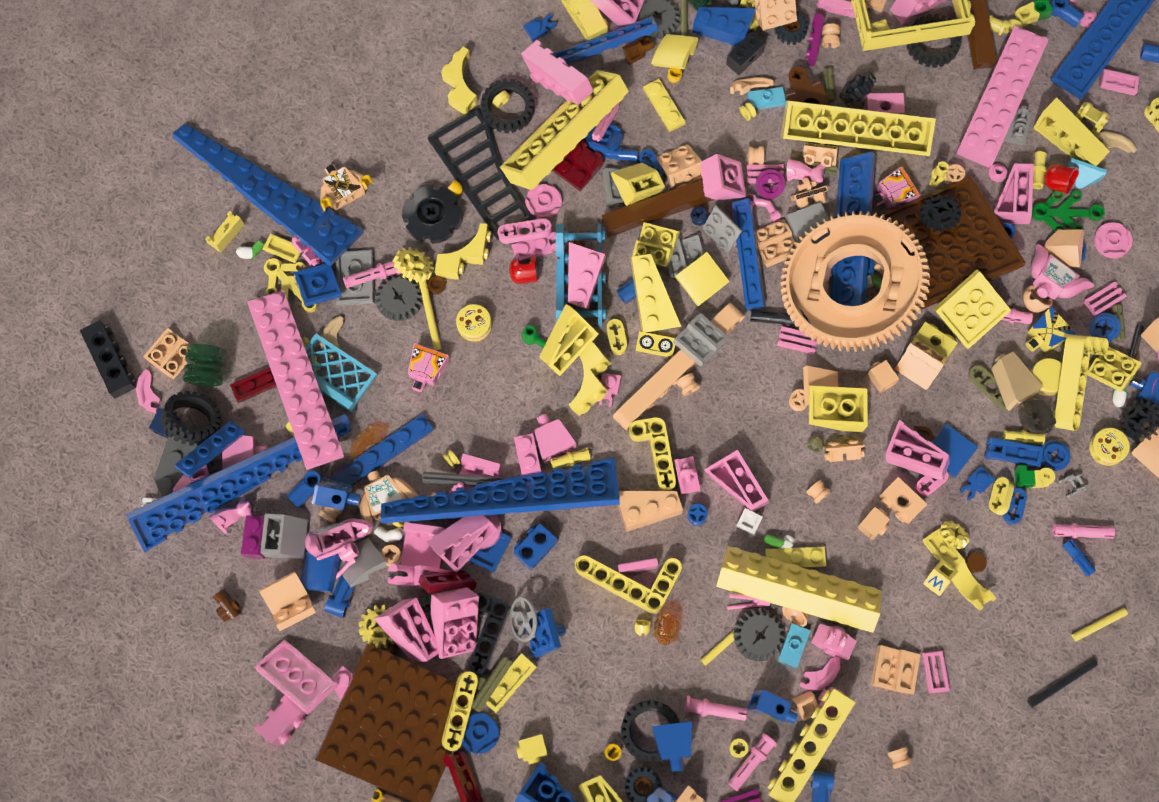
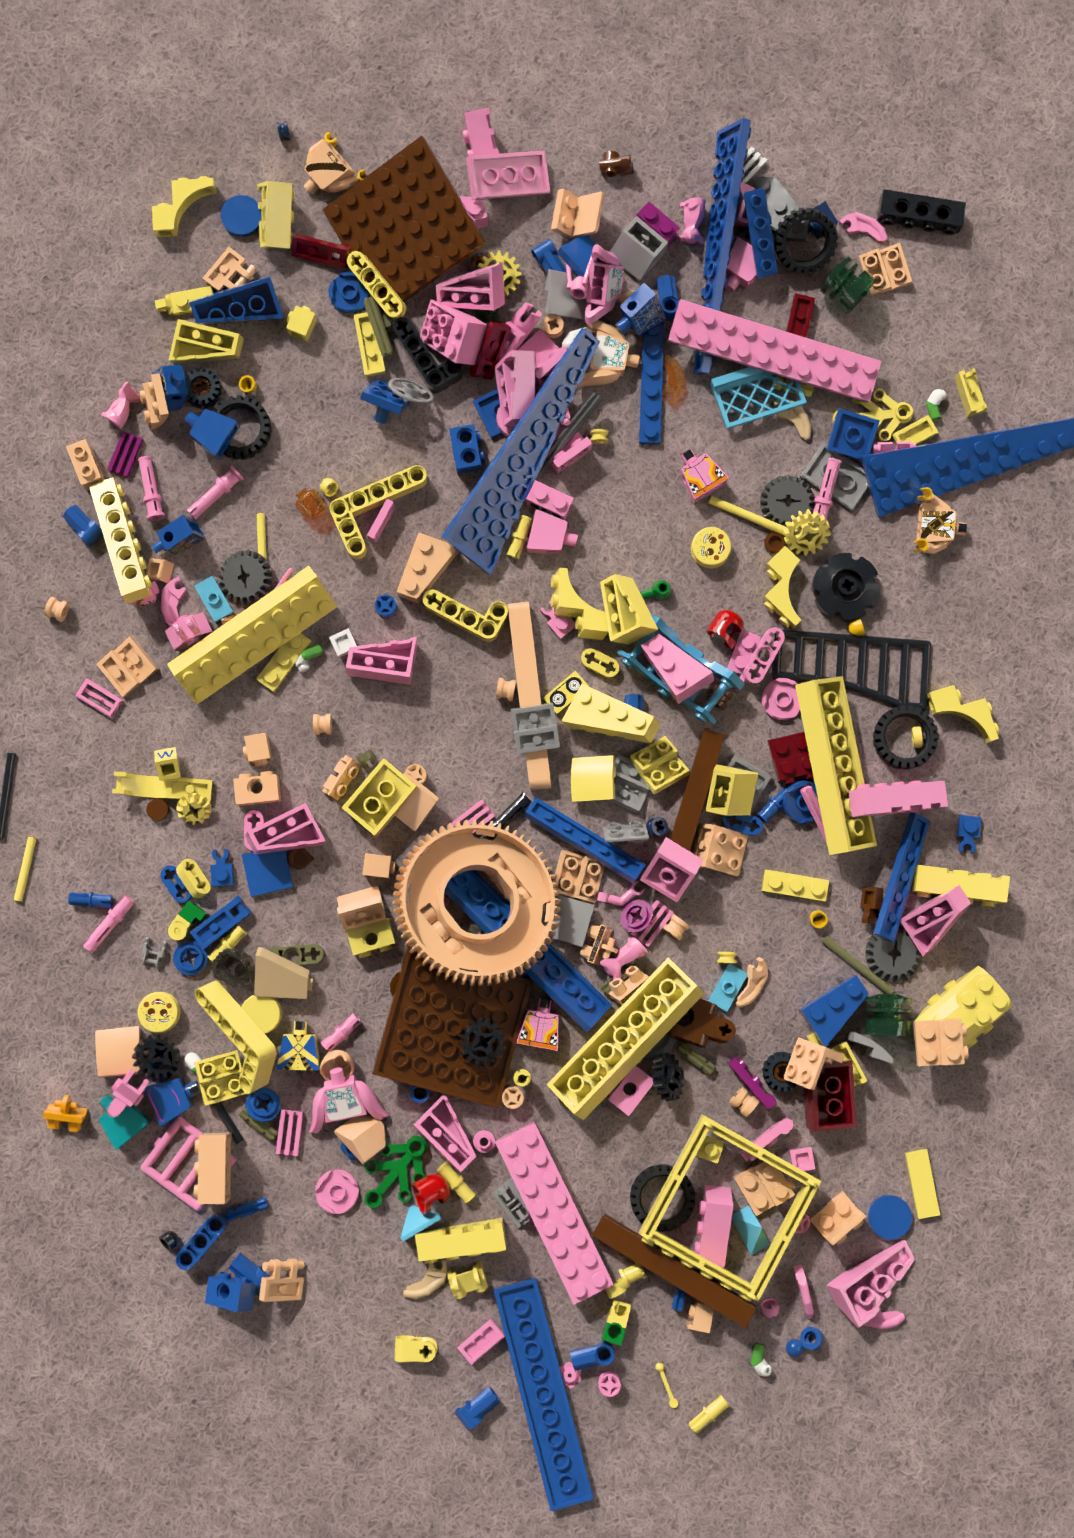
camera: 125 degrees right, 10 degrees up
(674, 51) = (841, 935): light yellow slope -> none
(687, 475) = (425, 622): bright pink hips -> none
(742, 753) = (163, 488): light yellow bush -> none
(745, 53) = (787, 1003): black brick -> none
(972, 309) = (370, 991): light yellow plate -> none

